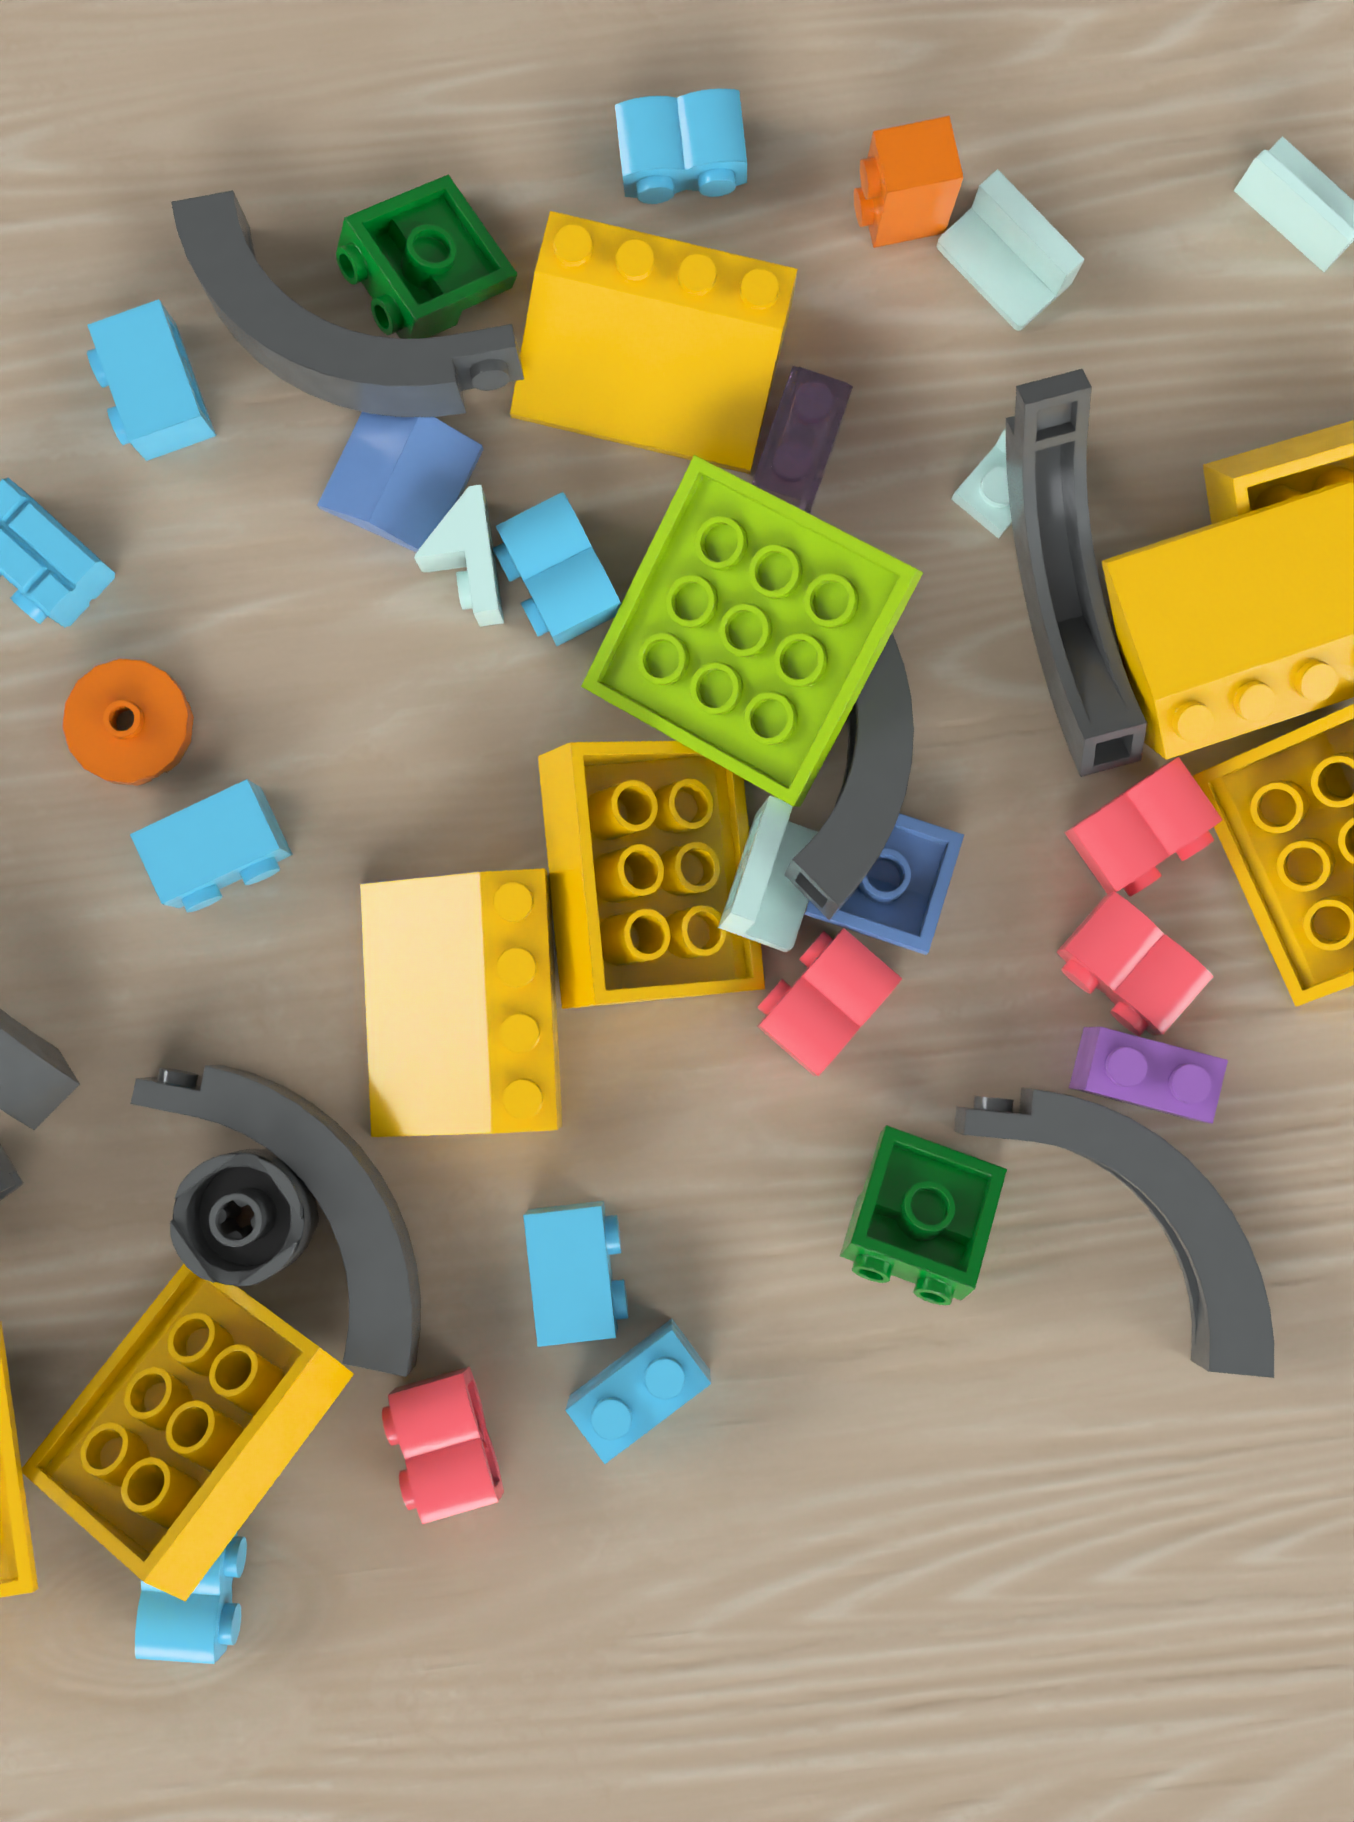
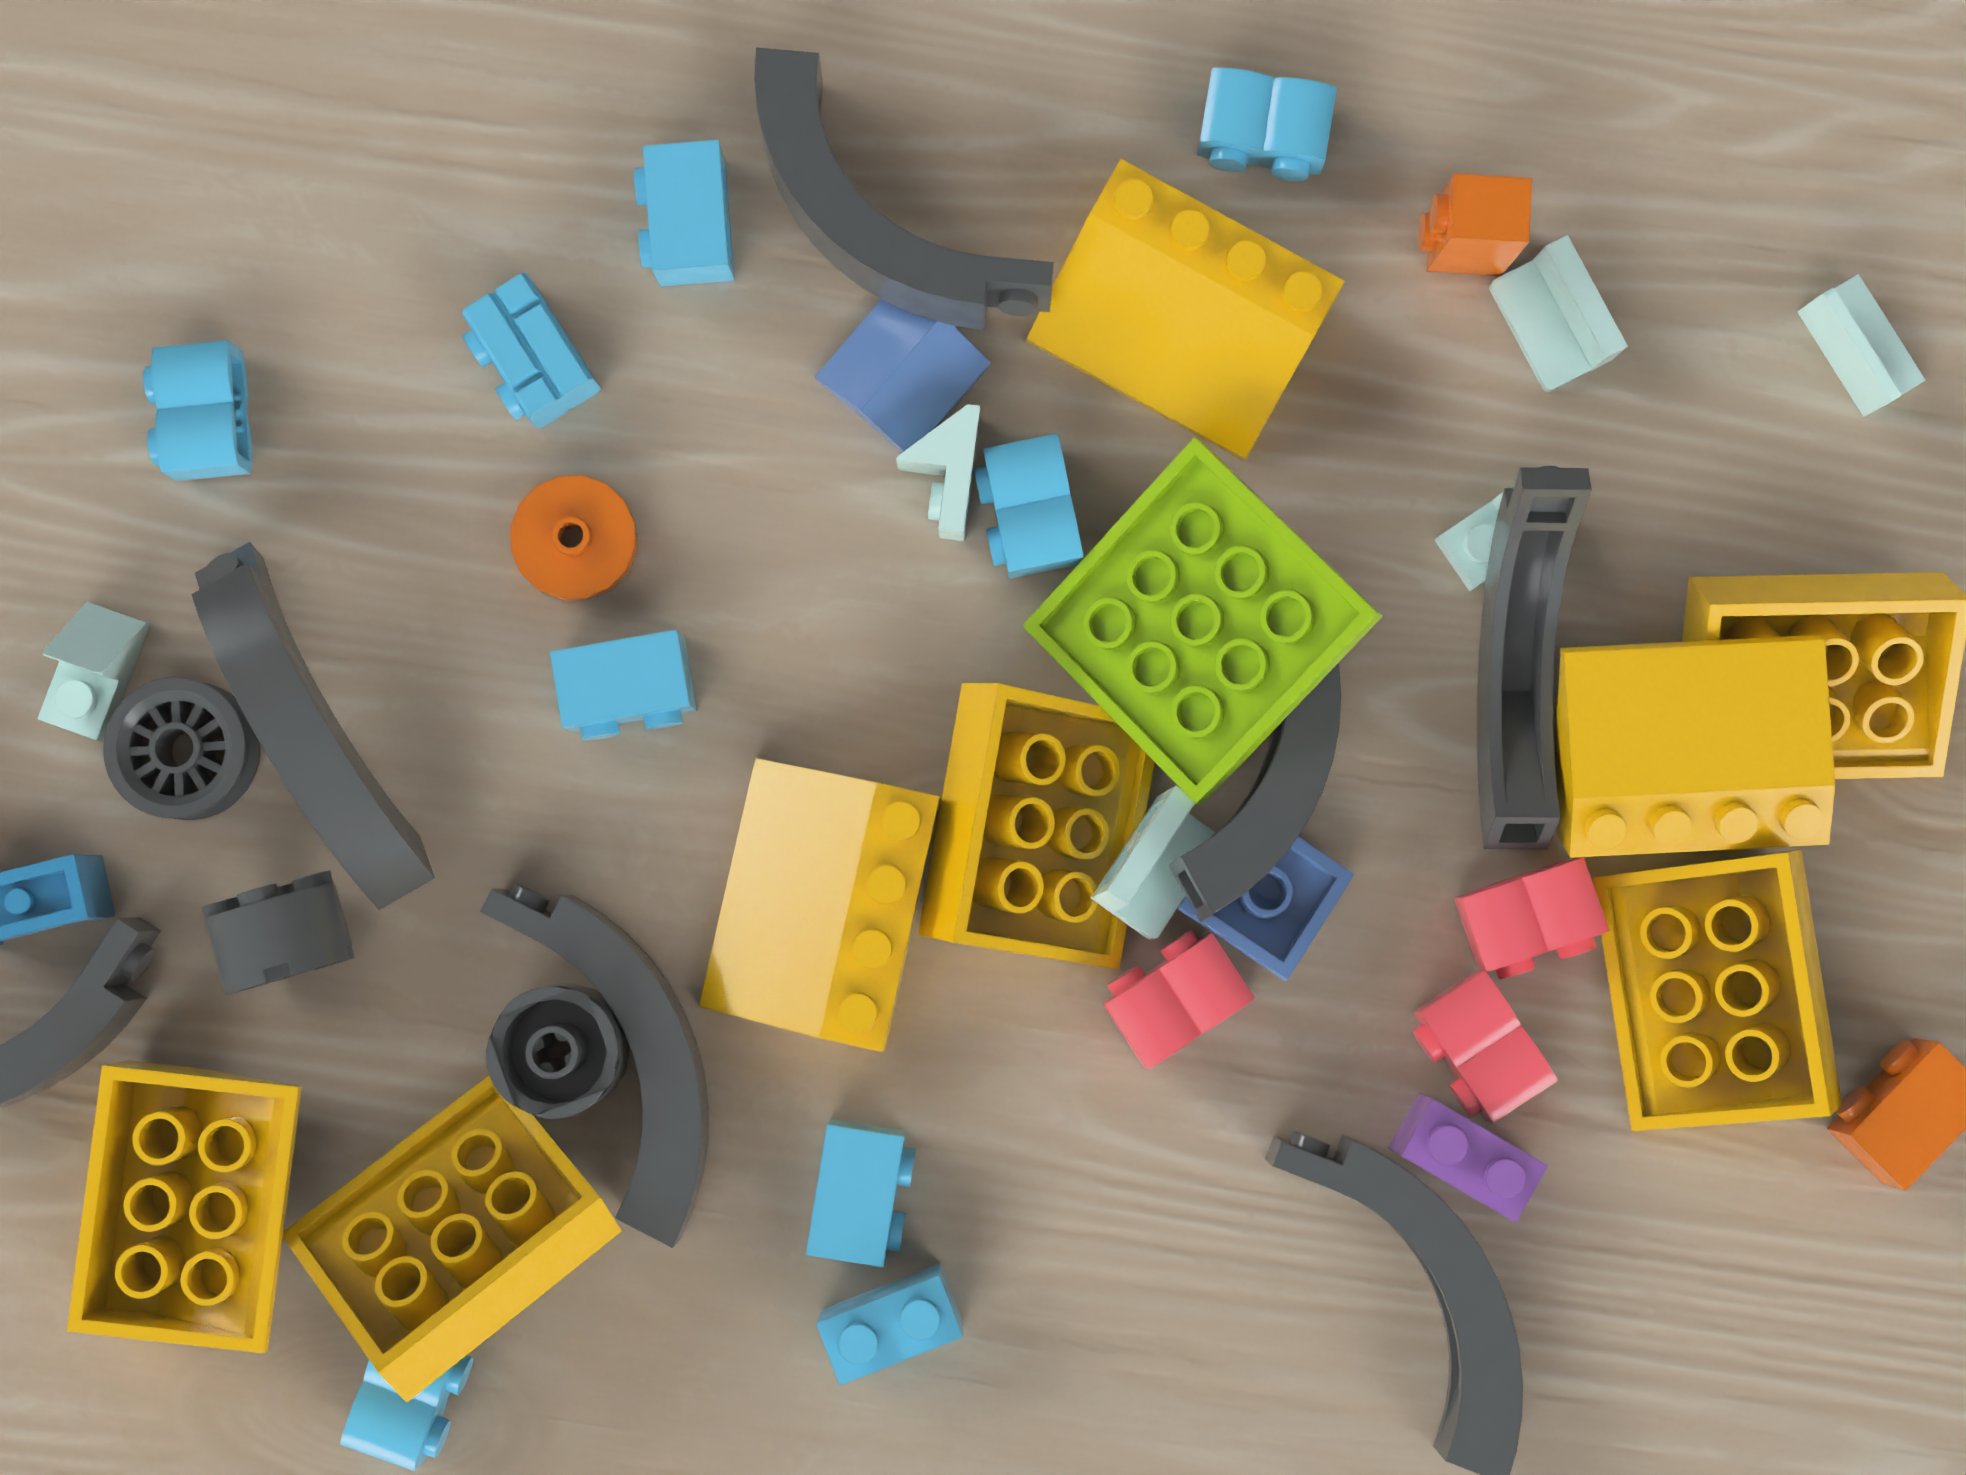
camera: 15 degrees right, 0 degrees up
(422, 259) = (983, 167): green plate -> none
(443, 1446) = (688, 1324): coral brick -> none
(802, 437) = (1303, 446): clear purple brick -> none
(923, 1217) = (1211, 1234): green plate -> none

